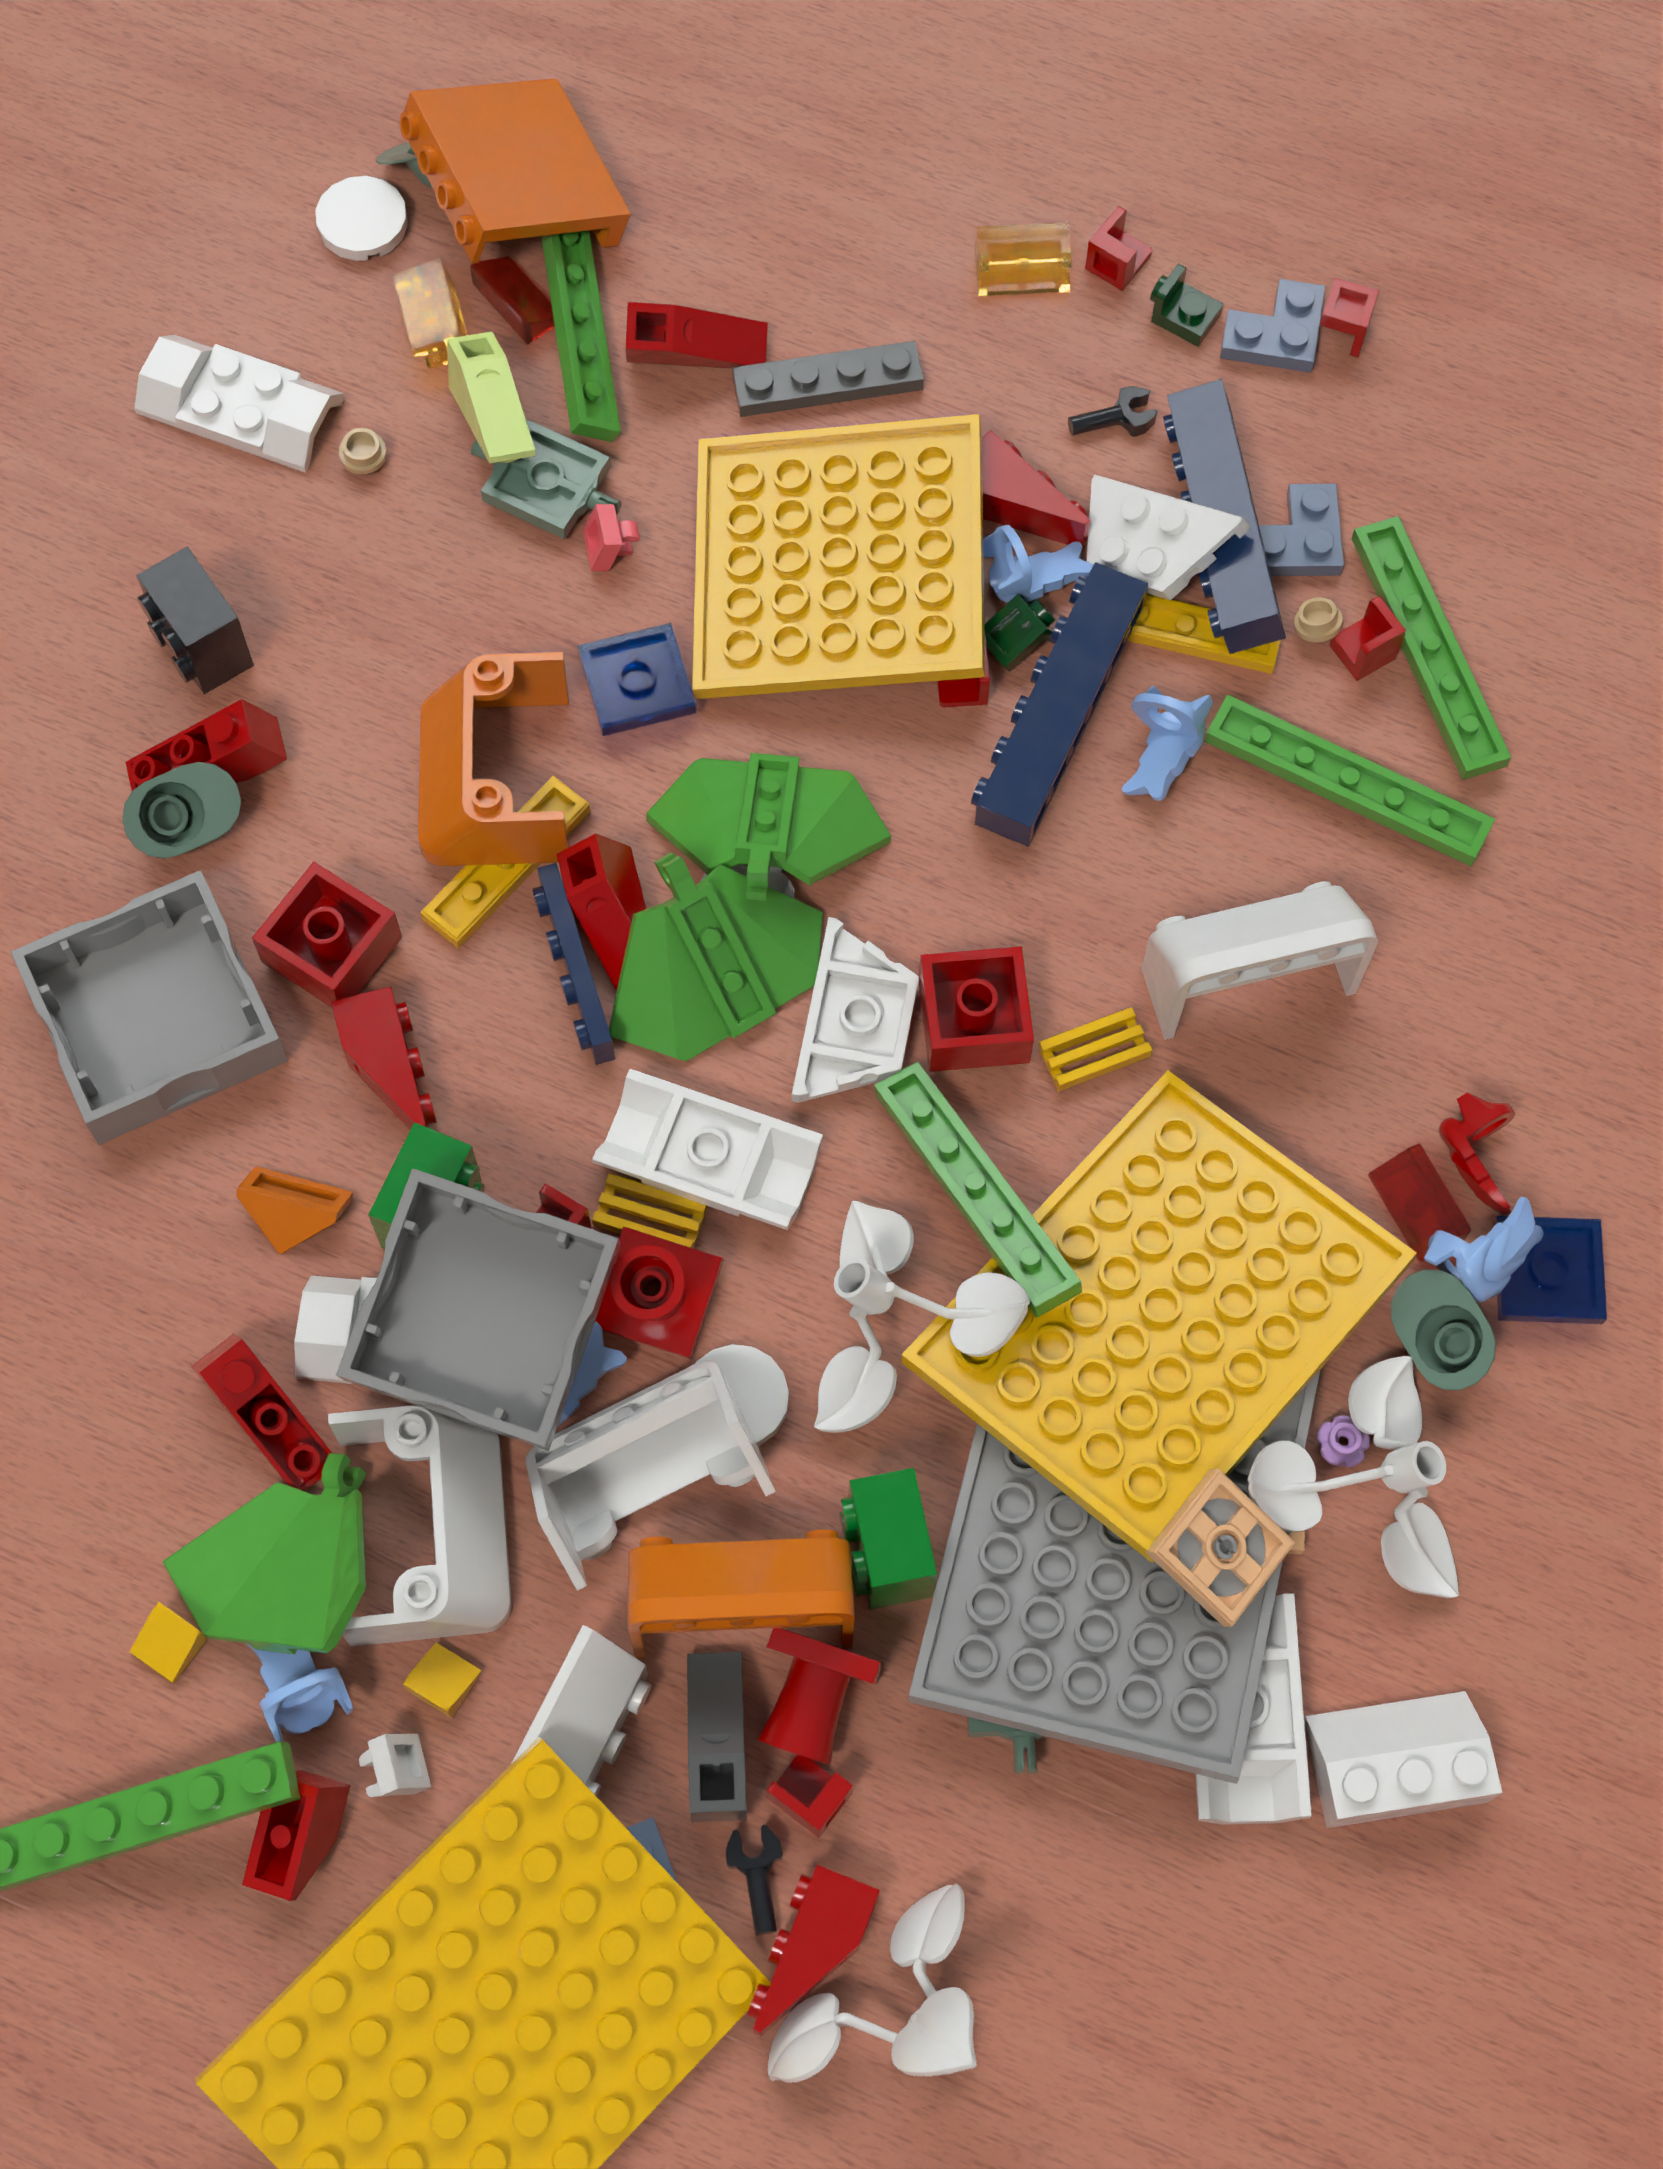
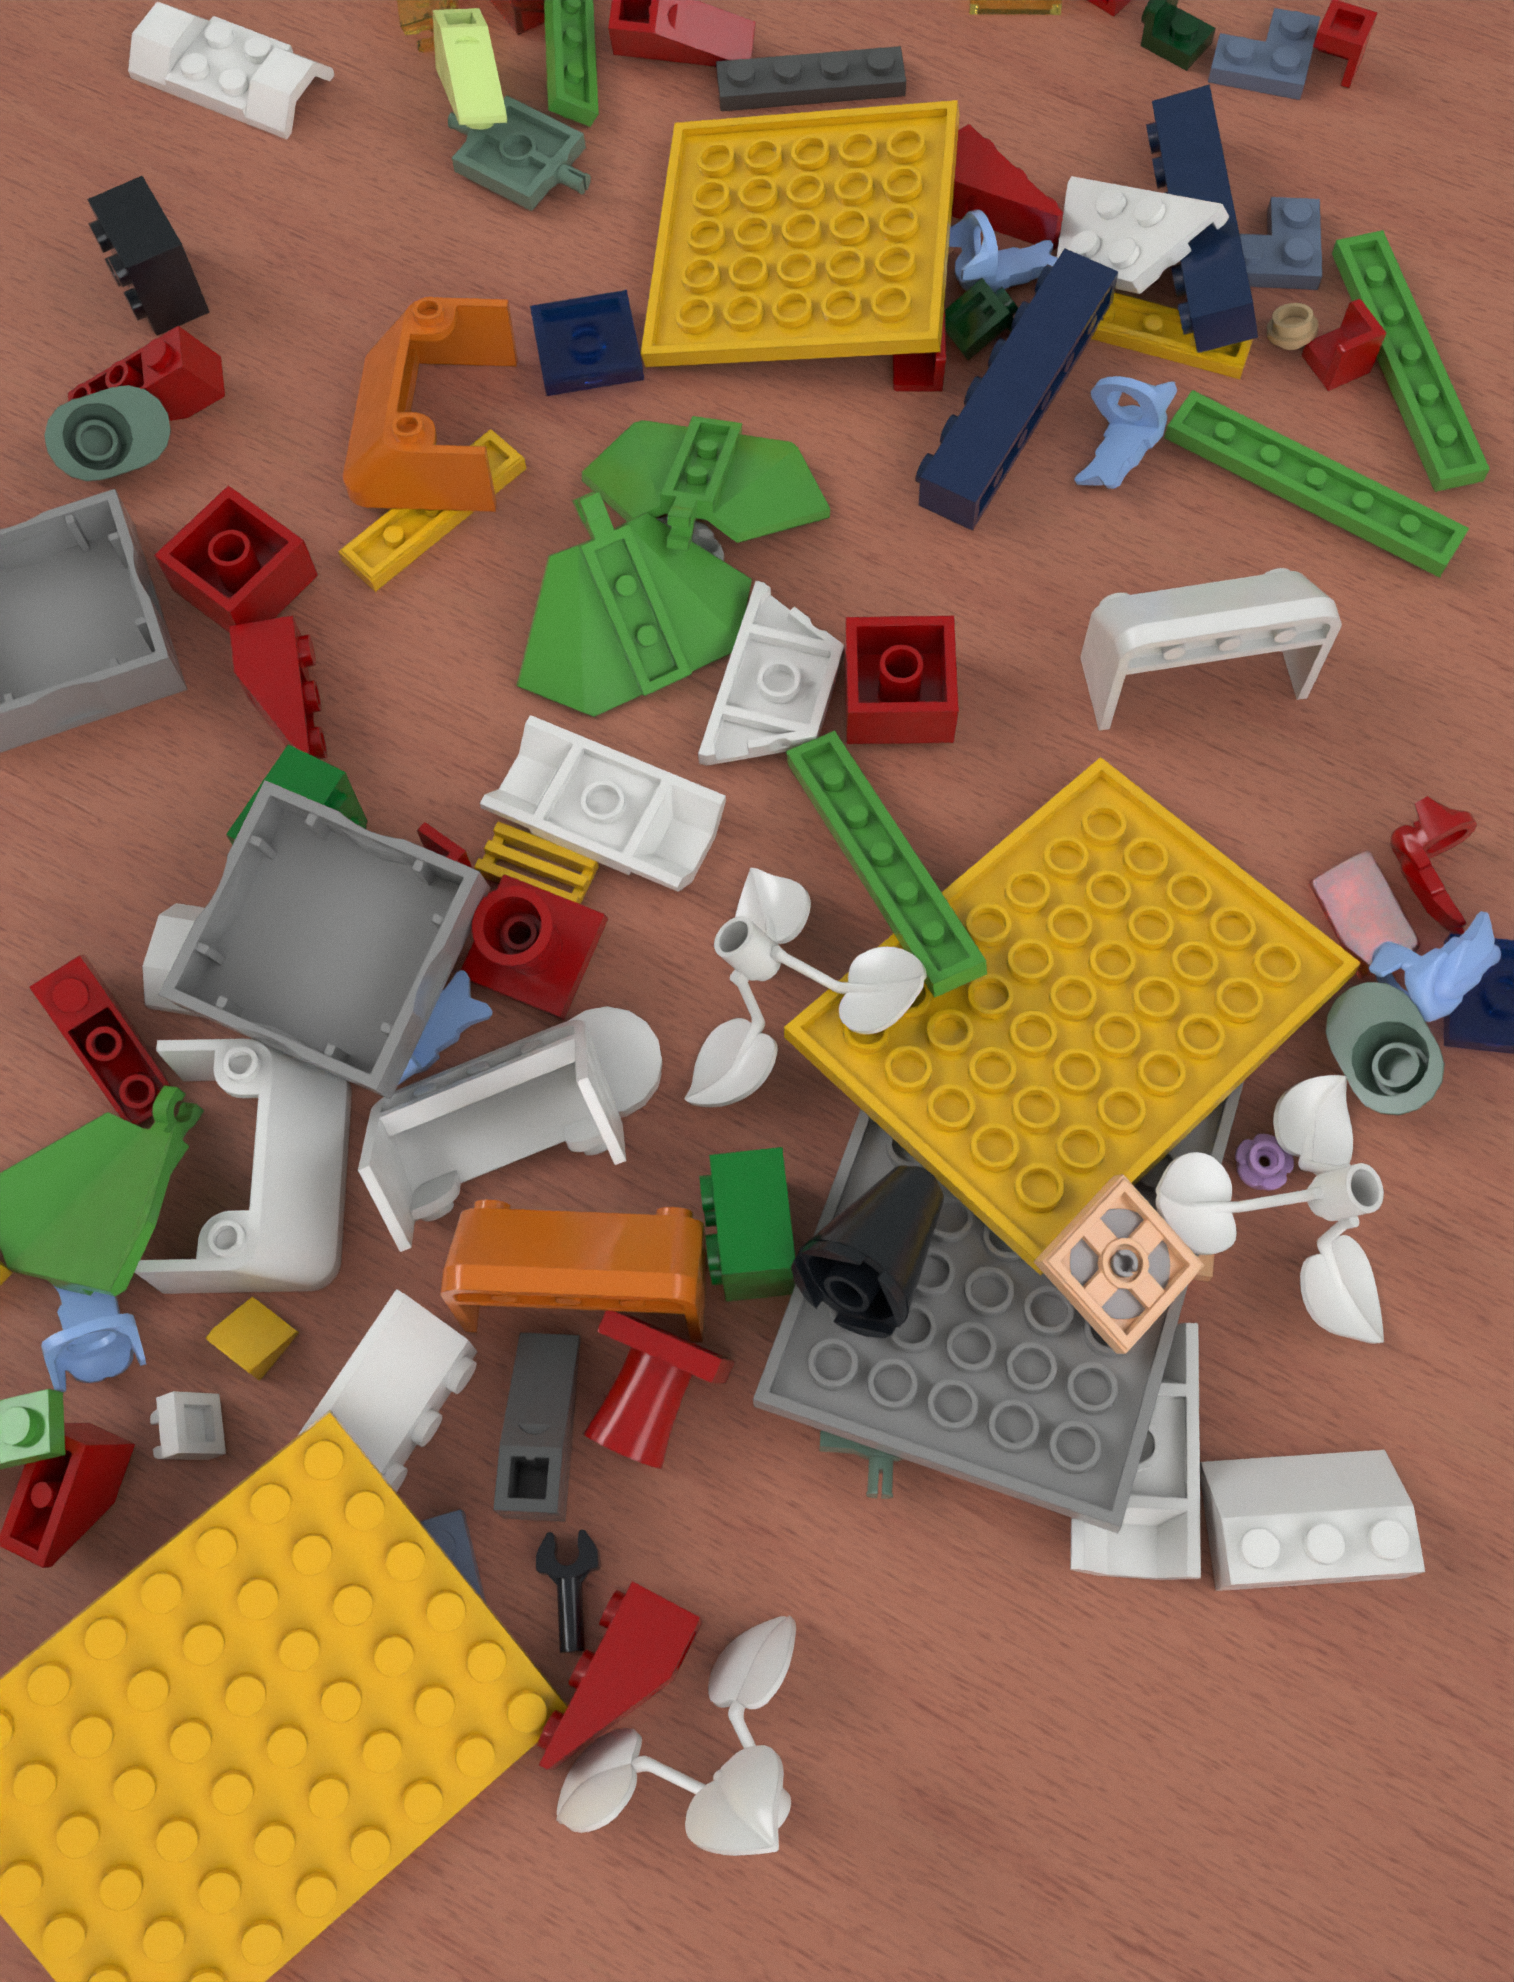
camera: 10 degrees right, 0 degrees up
(290, 1206) = (162, 831): orange slope -> none
(362, 451) = (342, 118): tan plate -> none
(578, 983) = (488, 630): dark blue plate -> none
(604, 895) = (521, 532): red slope -> none
(607, 537) = (574, 208): coral tile -> none
(810, 1794) = (637, 1500): red panel -> none
(1004, 1556) = (873, 1253): none -> black cone
(1091, 1030) = (1018, 715): yellow tile -> none
(1120, 414) = (1107, 124): black bar -> none

